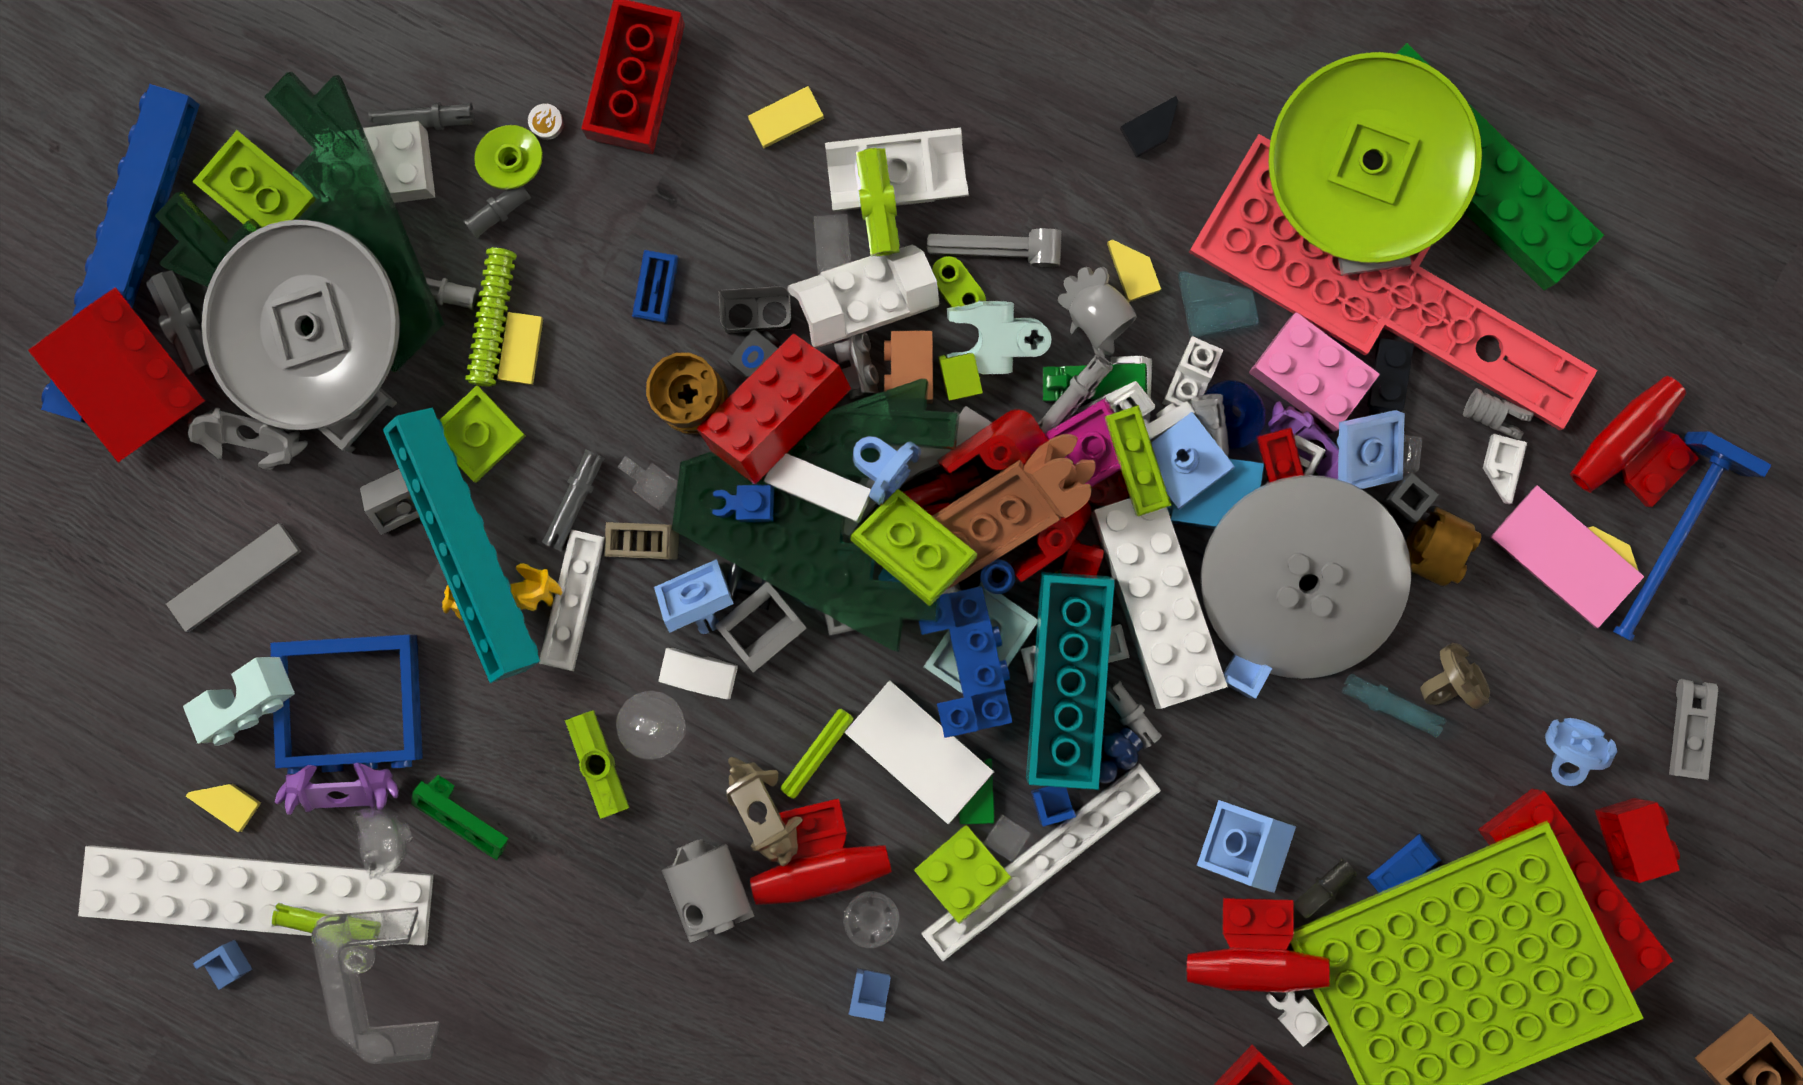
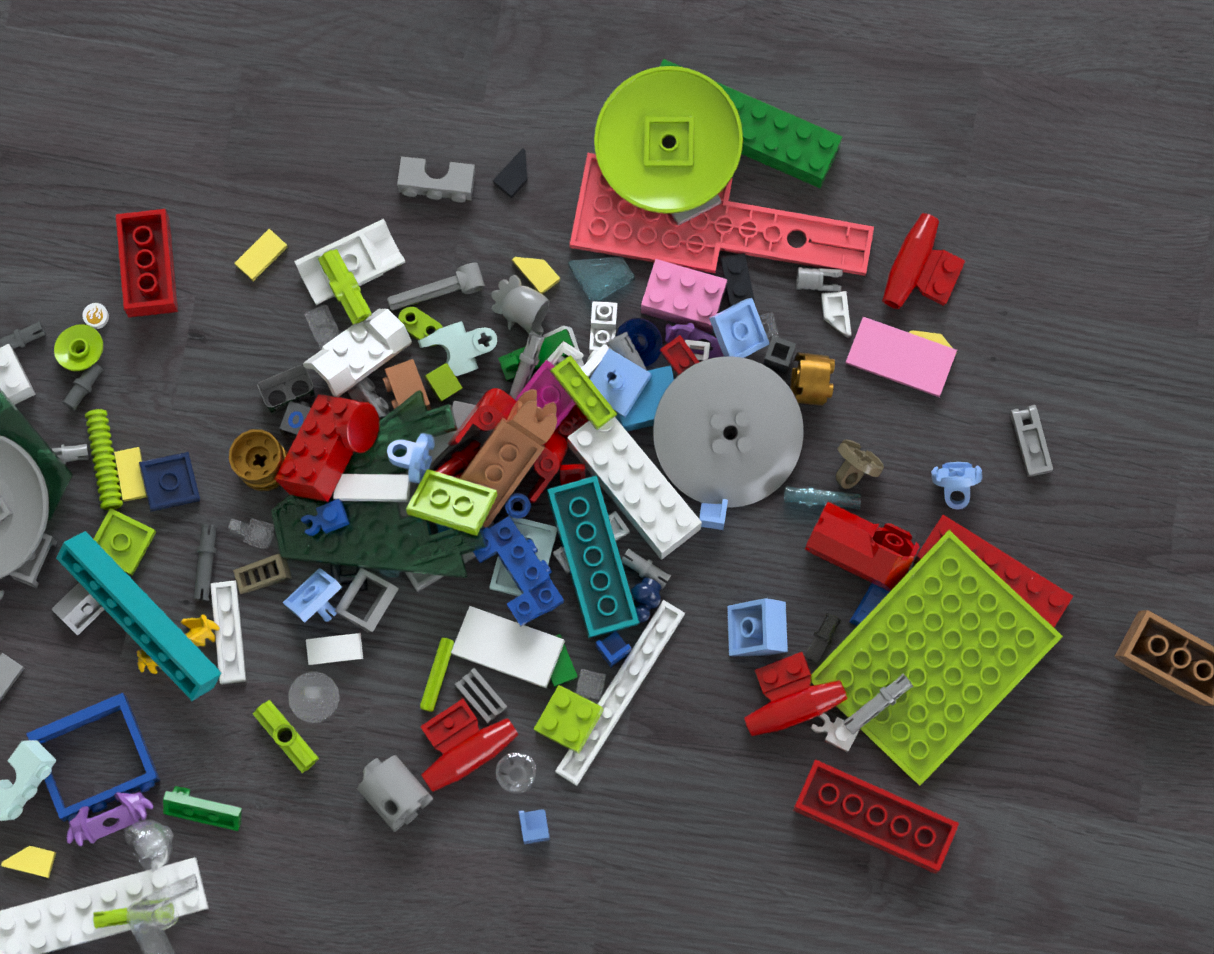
camera: 20 degrees left, 10 degrees down
(564, 376) = (169, 481): none -> dark blue tile
(650, 315) = (214, 419): blue tile -> none
(772, 837) = (427, 739): dark tan piece -> none
(829, 400) = (358, 426): none -> red tile
(873, 829) = (467, 679): none -> light grey tile
(1020, 90) = (456, 185): none -> light grey arch
(1367, 1007) = (878, 703): none -> light grey pin
(1429, 801) = (862, 547): none -> red brick
(1638, 840) = (1019, 524): red brick -> none
(1722, 457) = (977, 252): blue tile -> none

